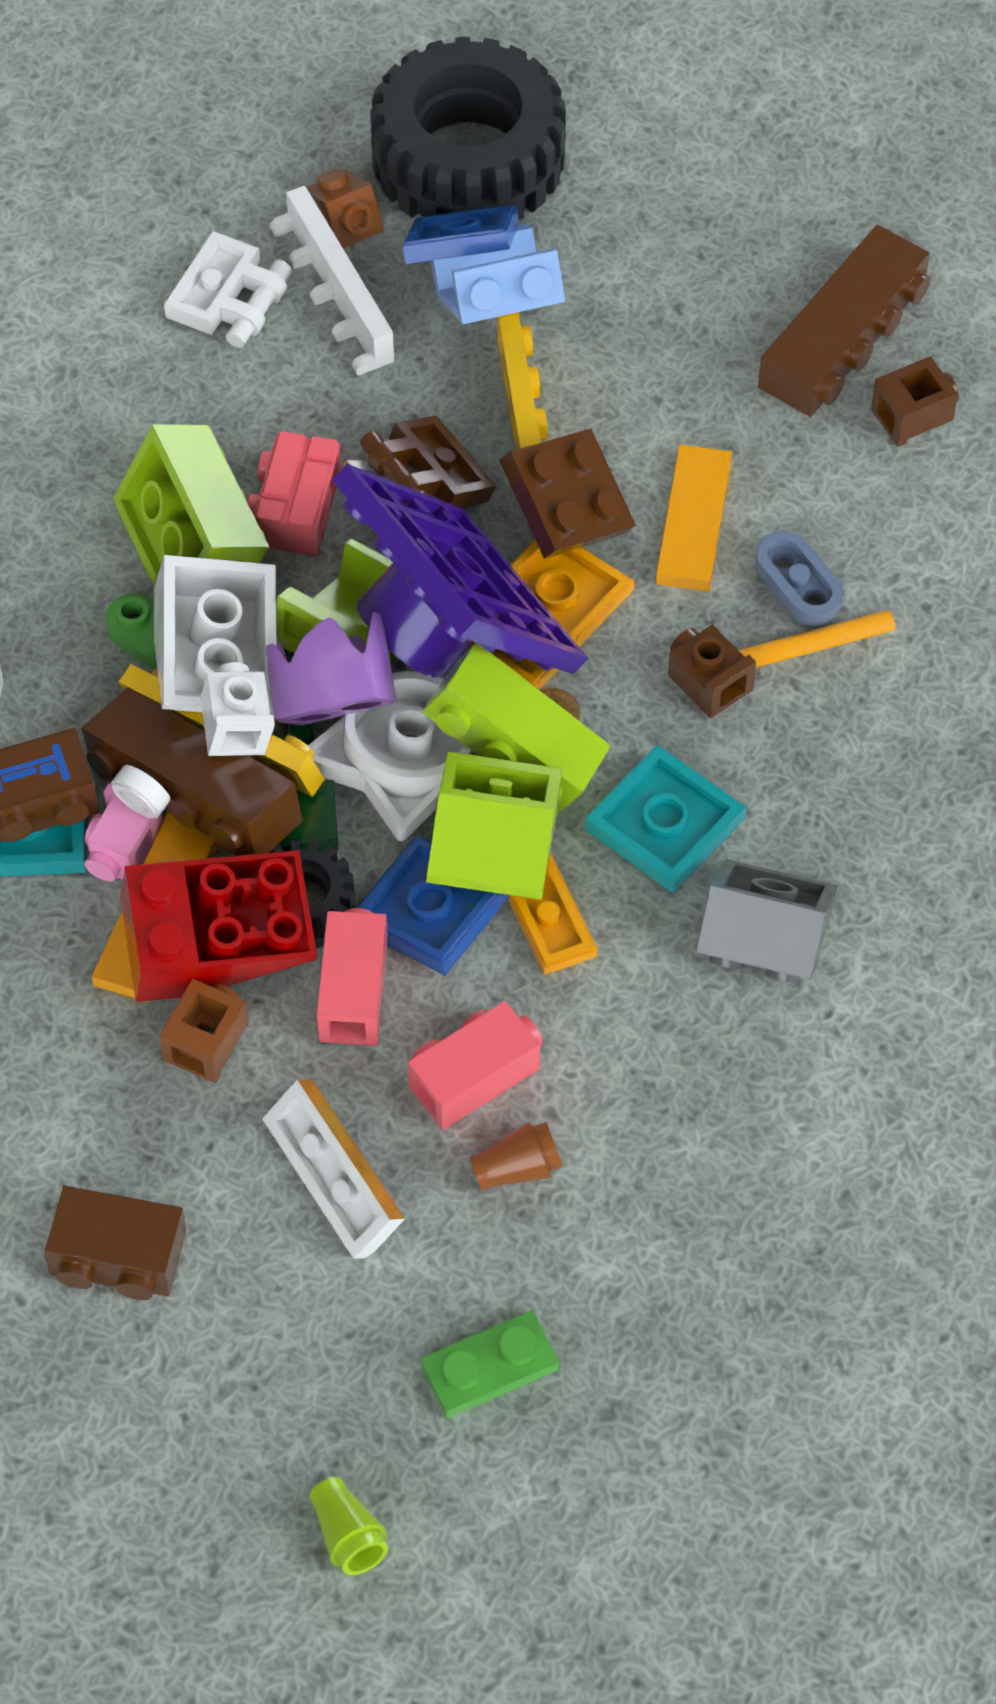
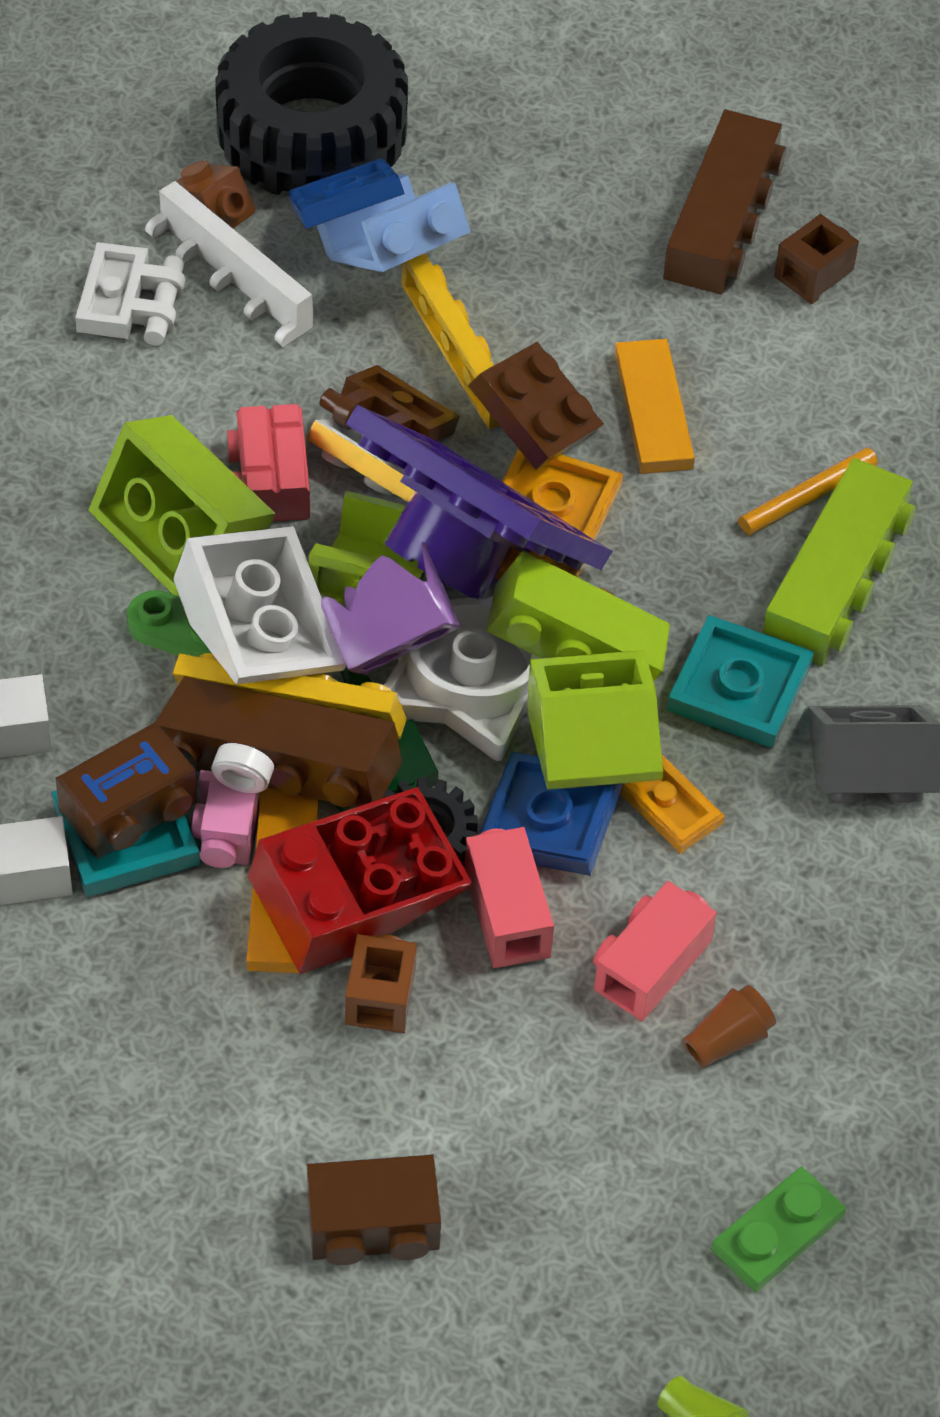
camera: 20 degrees left, 5 degrees down
(236, 711) = (315, 668): white brick -> none
(333, 1169) = (558, 1082): white plate -> none
(710, 669) = (727, 536): reddish brown brick -> none
(803, 581) = (777, 440): sand blue plate -> none
(810, 720) = (839, 560): none -> lime brick

